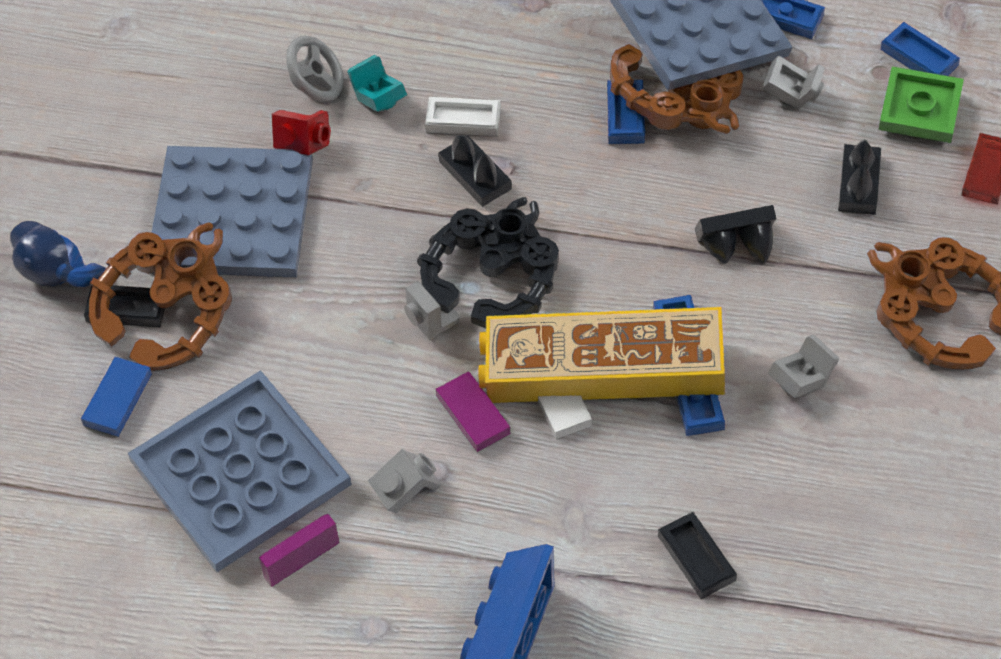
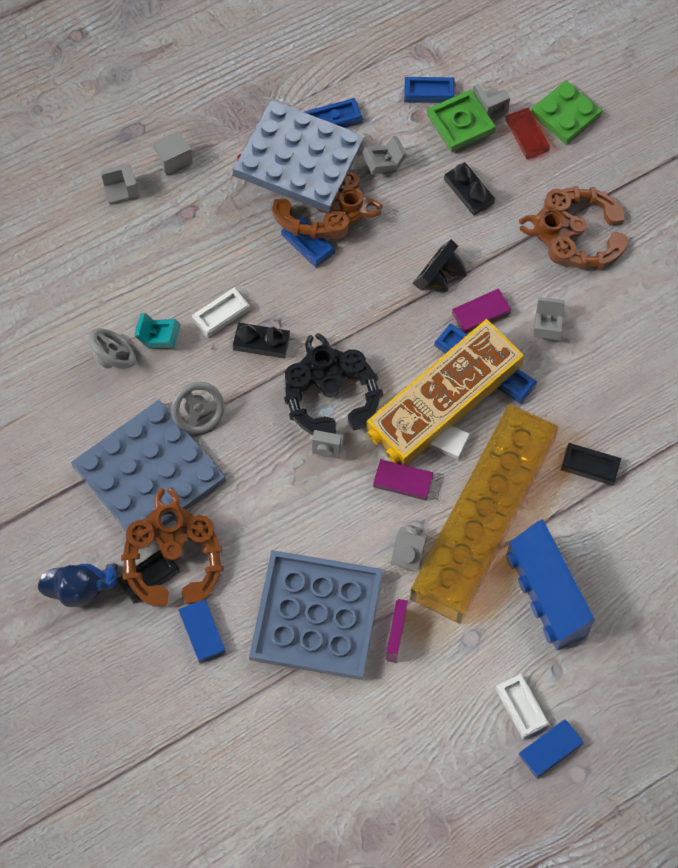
camera: 45 degrees left, 10 degrees up
(300, 131) = (143, 394): red bracket -> none
(348, 178) = (190, 400): none -> light grey piece
(517, 506) = (483, 514): none -> clear yellow brick
(744, 308) = (488, 306): none -> magenta tile
(976, 111) = (493, 102): none -> light grey panel

